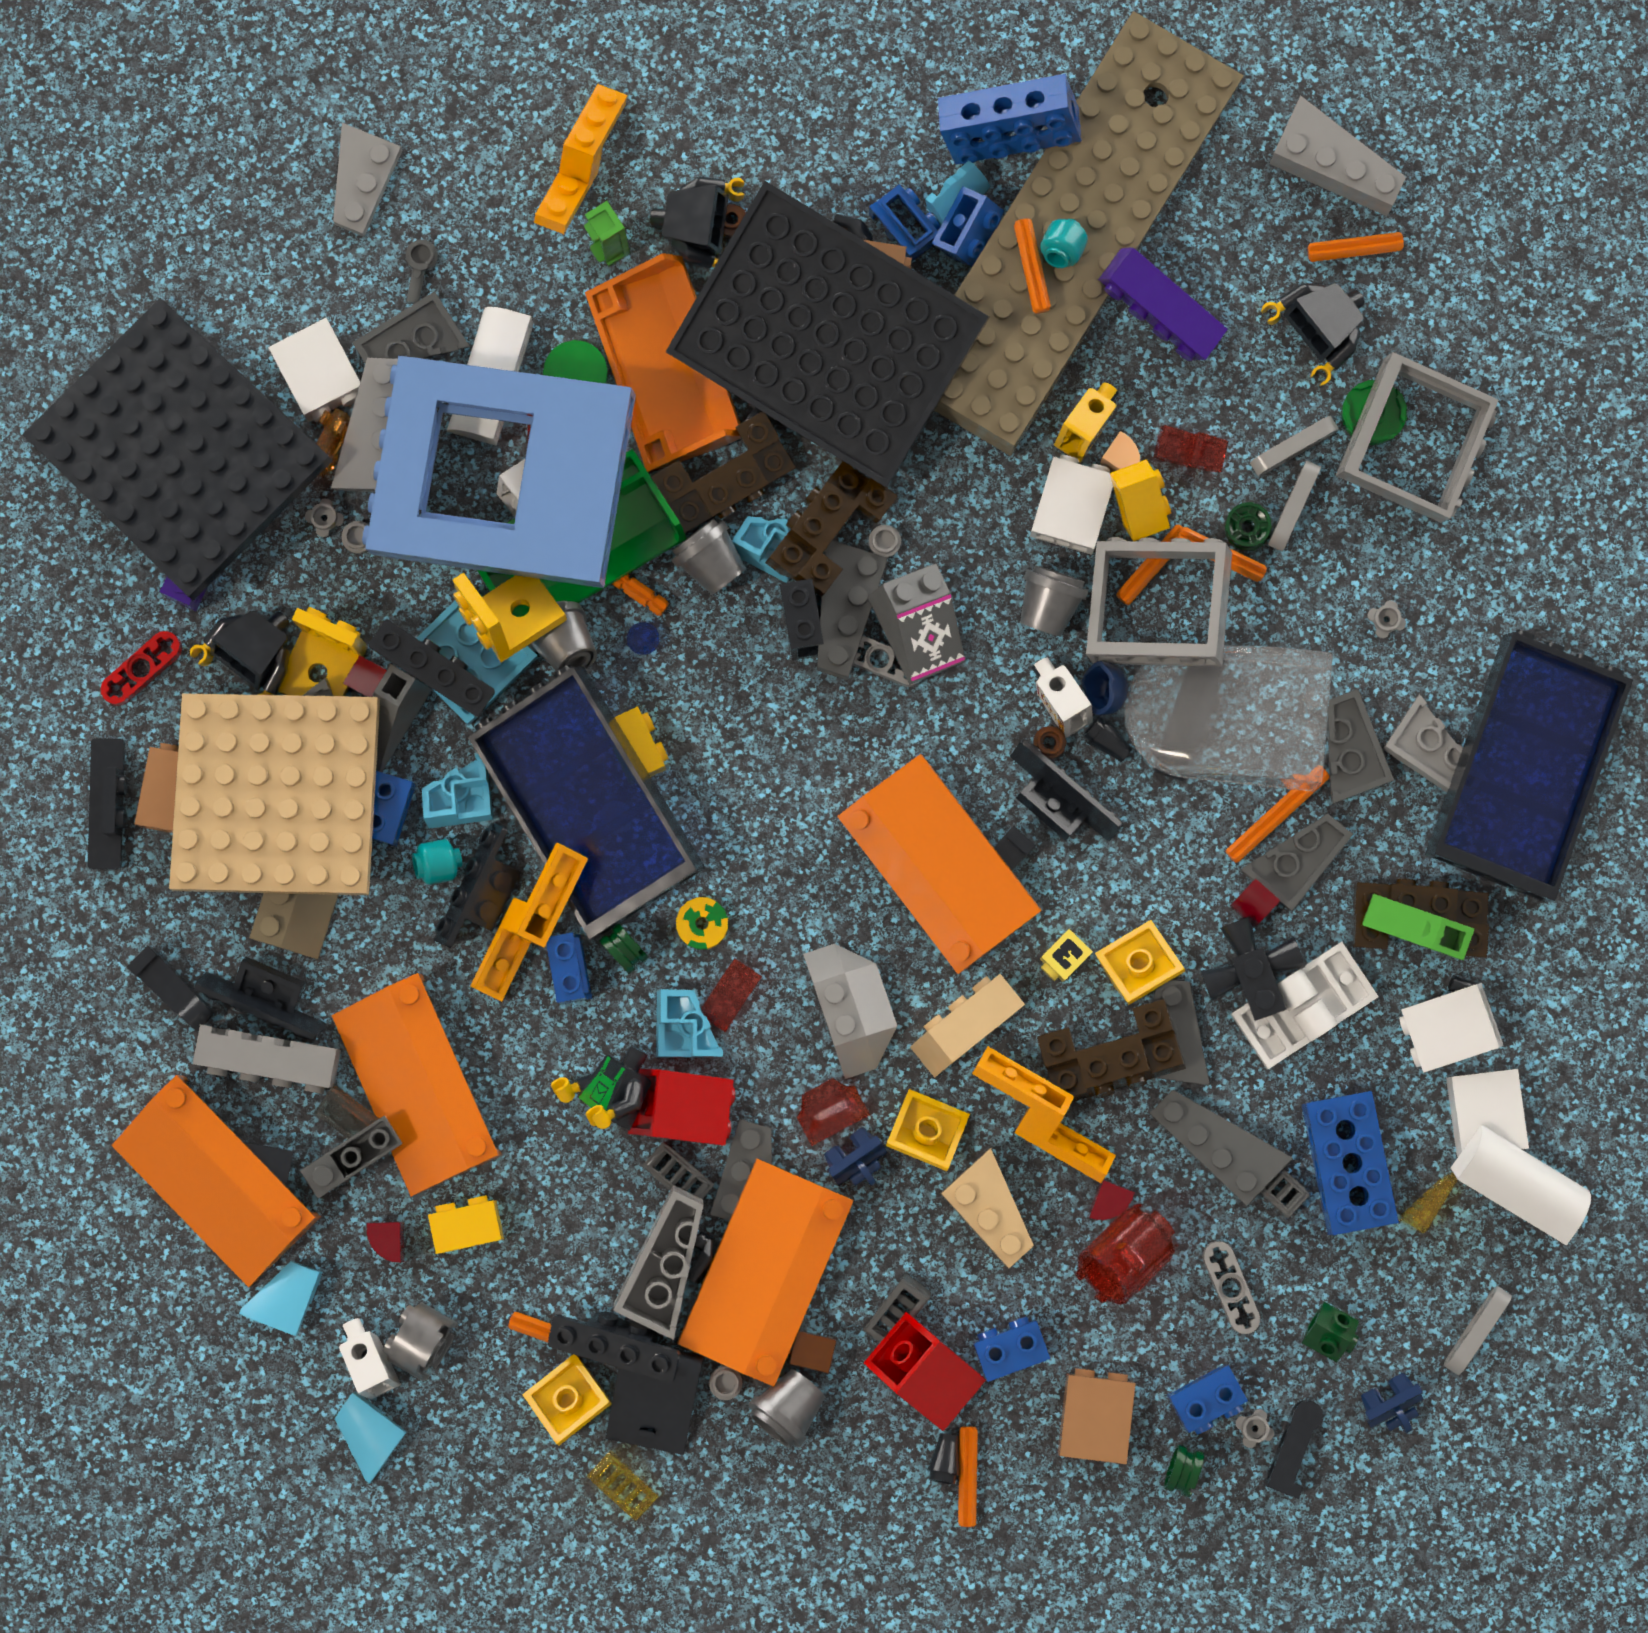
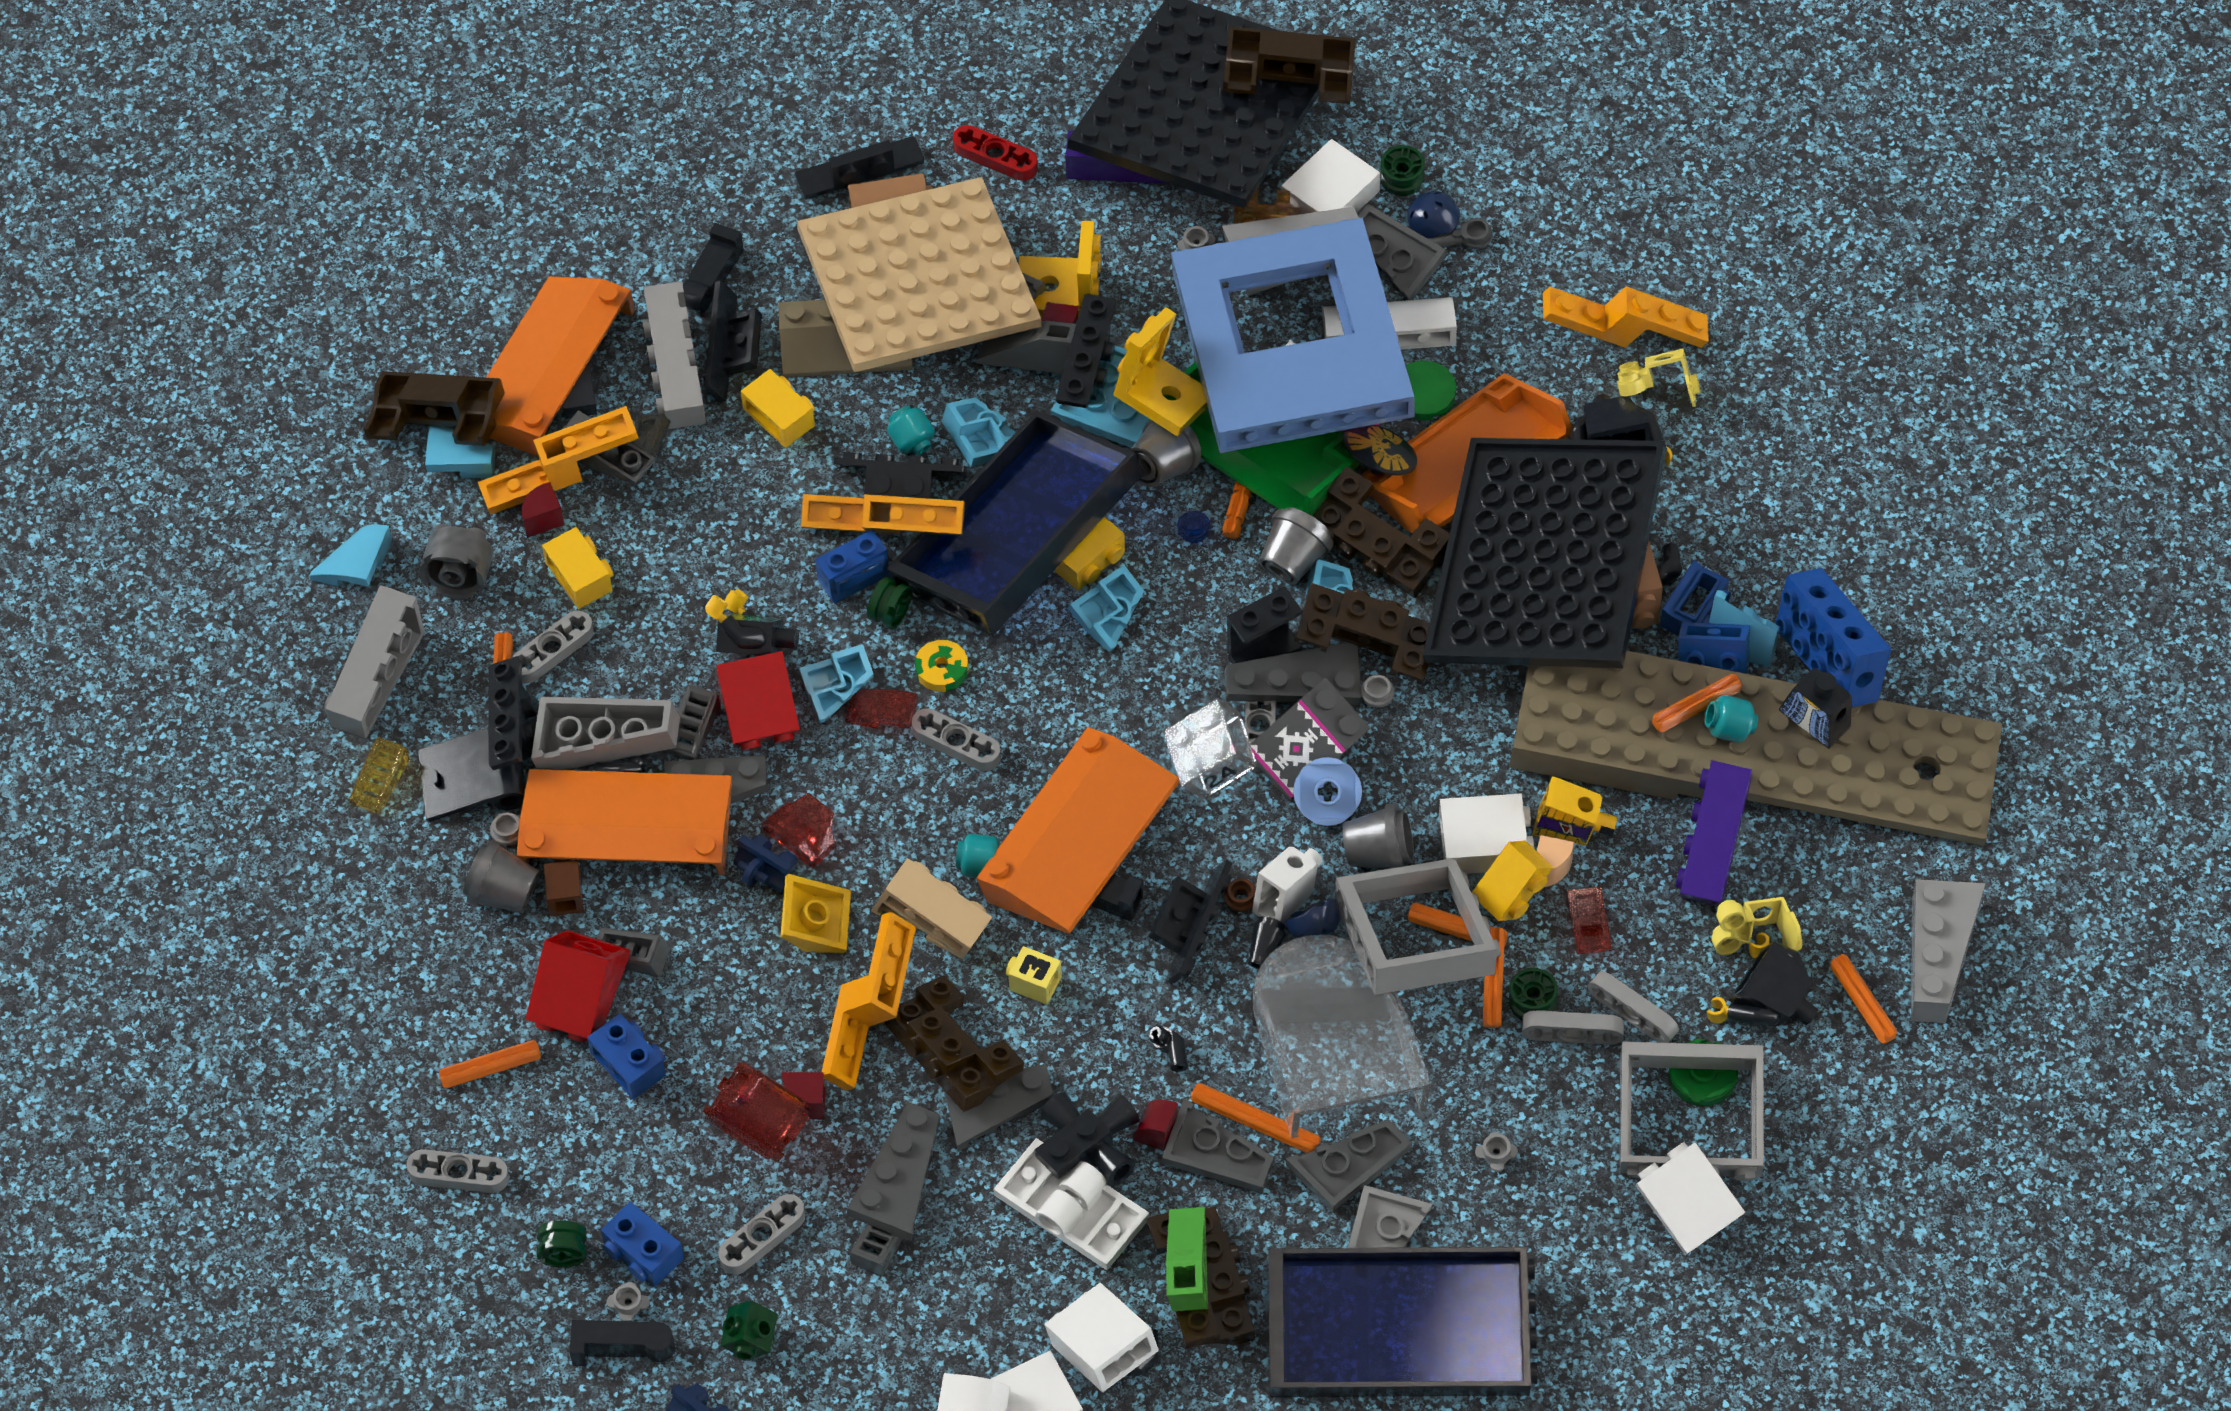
camera: 70 degrees right, 25 degrees down
(170, 349) = (1289, 58): none -> dark brown bracket
(227, 1300) = (435, 400): none -> dark brown bracket
(249, 648) = (1046, 221): black torso -> none
(314, 284) = (1405, 159): none -> dark green wheel
(347, 1208) = (559, 458): none -> light orange bracket
(359, 976) = (778, 407): none -> yellow brick
(362, 177) = (1528, 166): light grey wing -> none
(373, 1373) = (412, 525): white torso -> none
(380, 290) = (1433, 214): none -> dark blue helmet
(391, 807) = (944, 376): blue brick -> none
(415, 1084) = (694, 484): orange slope -> none
(504, 1454) = (375, 661): none -> light grey wedge
(554, 1282) = (554, 633): none -> light grey beam
(567, 1399) = (445, 702): yellow slope -> none
(607, 234) = (1560, 352): bright green container -> none
(649, 174) = (1635, 379): none -> light yellow piece
(649, 438) = (1380, 450): none -> shield
(700, 749) = (1108, 607): none -> medium azure slope
(811, 928) = (963, 752): none -> light grey beam
(852, 1006) = (907, 810): light grey wedge -> none
(901, 714) = (1210, 748): none -> clear brick
(925, 962) = (975, 853): none -> teal head
(945, 1460) = (498, 1036): black cone -> none
(963, 626) = (1341, 777): none -> light blue plate
(989, 1209) = (757, 989): tan wedge -> none
(1062, 1566) = (448, 1159): none -> light grey beam
(1082, 161) = (1819, 707): none -> black torso
(1096, 1416) = (588, 1152): medium nougat brick -> none
(1139, 962) = (1055, 1042): yellow slope -> none
(1176, 859) = (1172, 1044): none -> black arm
(1253, 317) = (1738, 924): none -> light yellow piece
(1371, 1169) = (931, 1272): blue brick -> none
(1423, 1210) = (909, 1381): clear yellow slope -> none
(1508, 474) = (1689, 1197): none -> white brick

